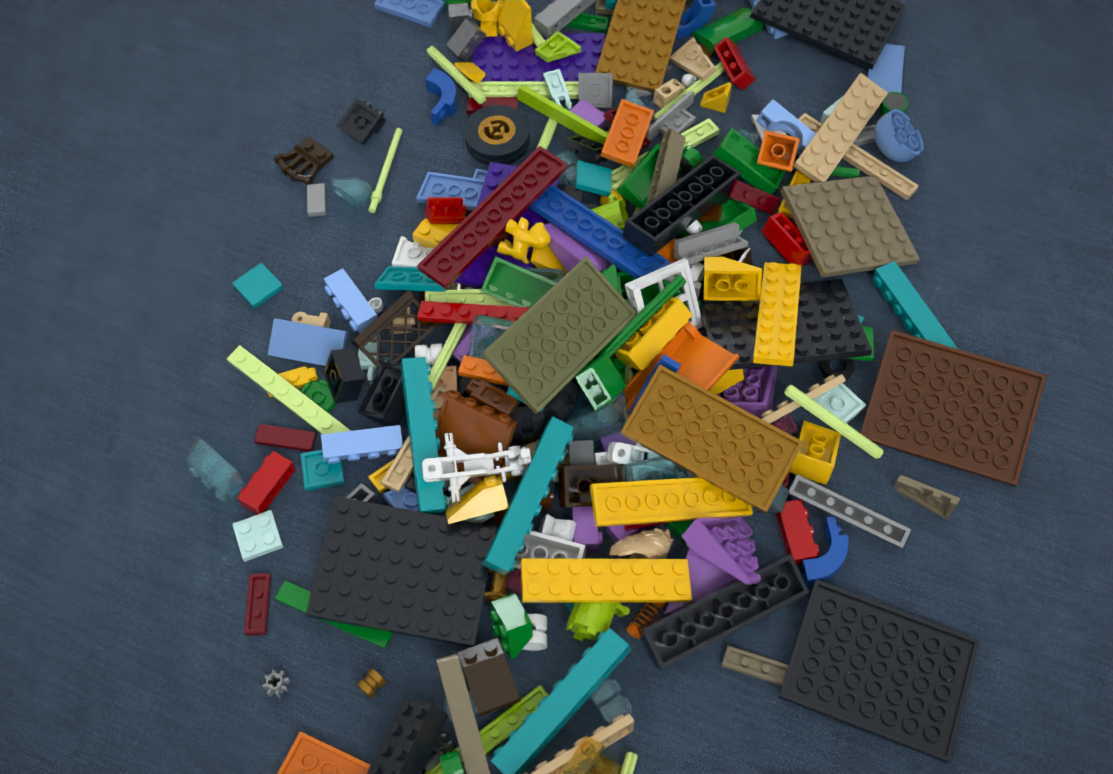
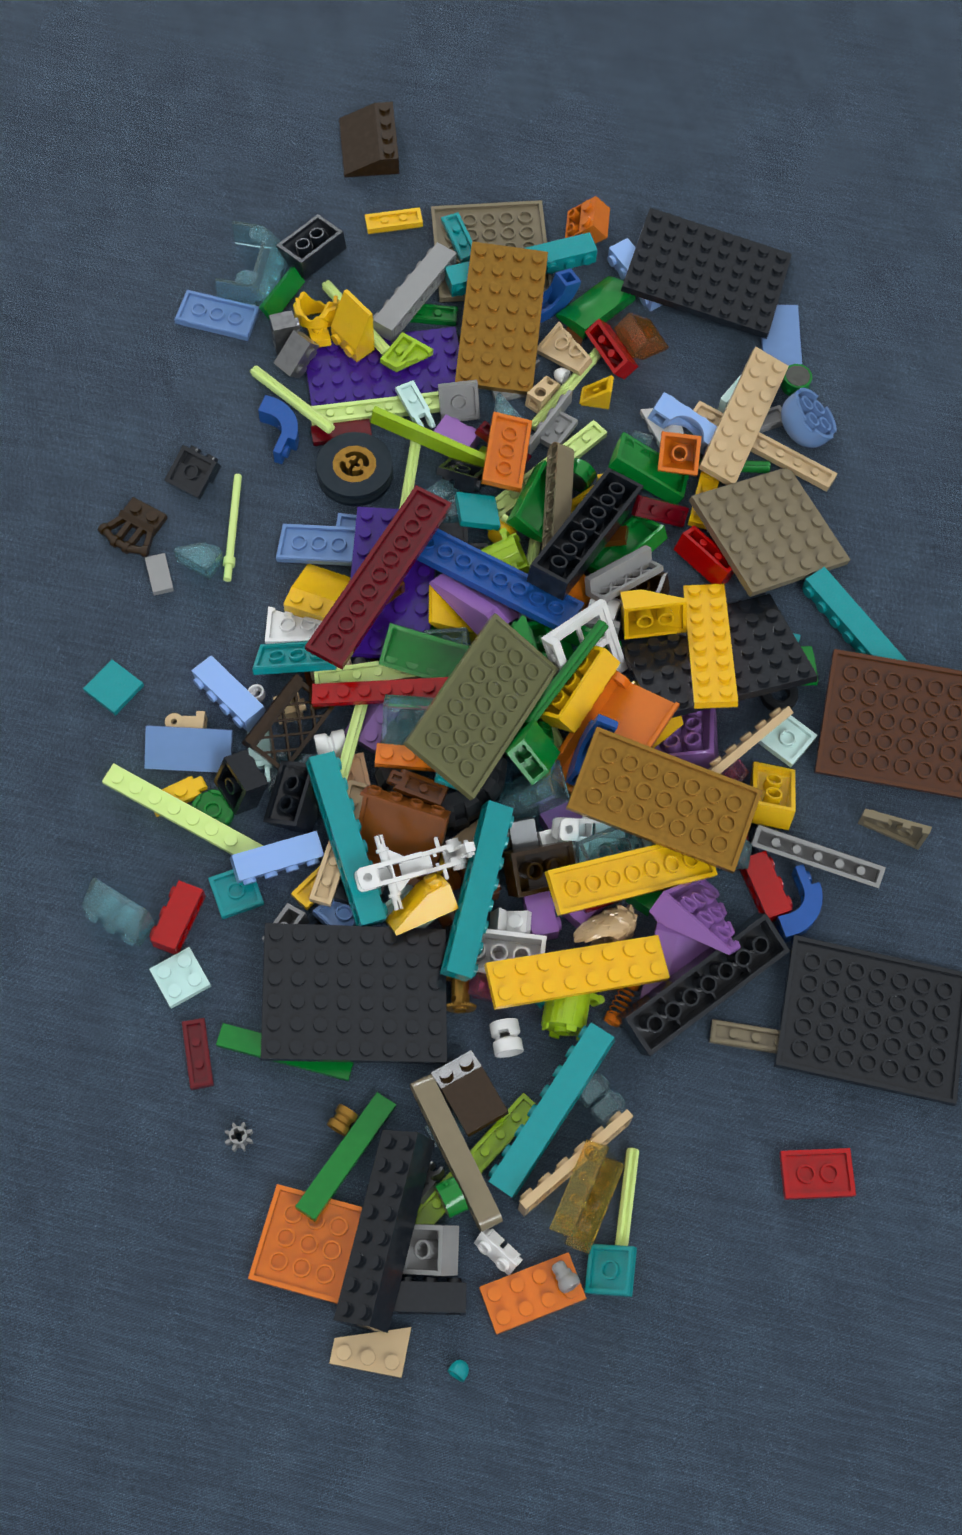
camera: 15 degrees left, 5 degrees up
(285, 438) = (186, 862): dark red tile -> none
(366, 717) = (345, 1157): none -> green tile
(445, 210) = (315, 571): red hinge -> none
(471, 71) = (309, 393): yellow slope -> none
(510, 485) = (454, 879): none -> dark orange tile
(511, 624) = (483, 1033): green slope -> none
(523, 239) = (432, 595): yellow animal -> none
(694, 228) = (603, 558): white hinge -> none
(761, 56) = (640, 336): none -> clear orange slope
(833, 421) = (787, 760): yellowish green axle -> none

